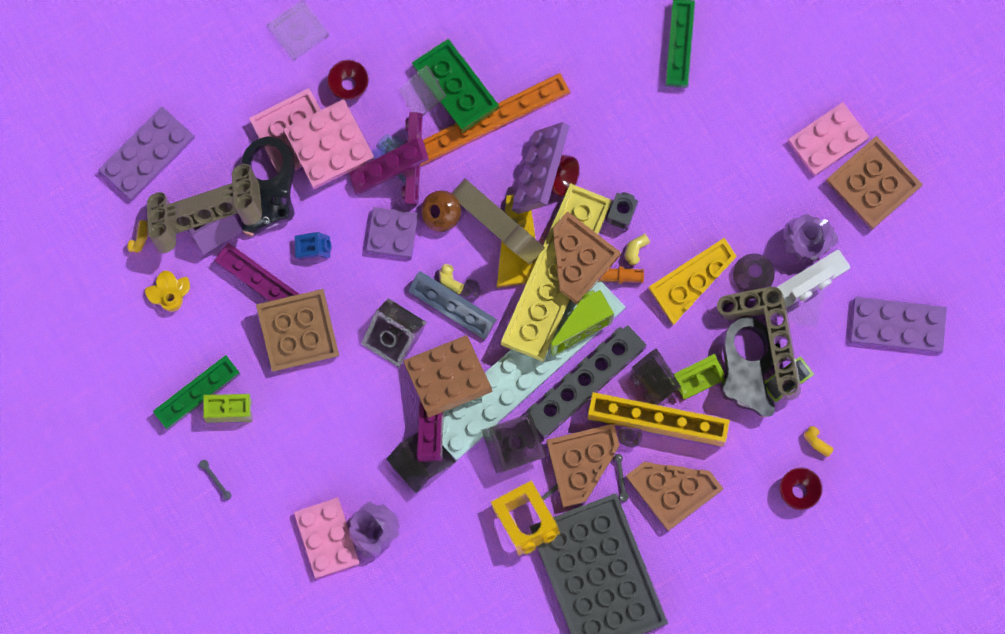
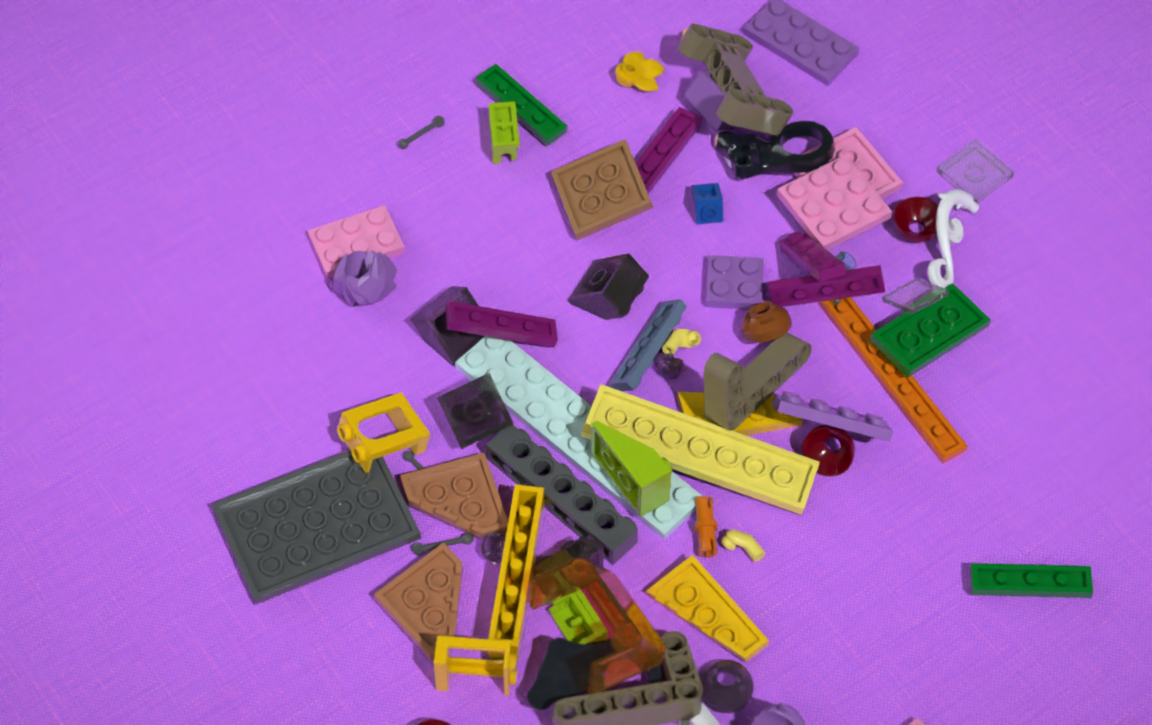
camera: 85 degrees right, 20 degrees down
(364, 58) = (949, 232): none -> white plant
(447, 376) = (556, 341): nougat plate -> none
(580, 257) = (720, 466): nougat plate -> none
(618, 219) = (791, 512): dark grey brick -> none
(684, 351) = (633, 637): none -> clear orange windscreen
(731, 476) = (445, 664): none -> yellow panel

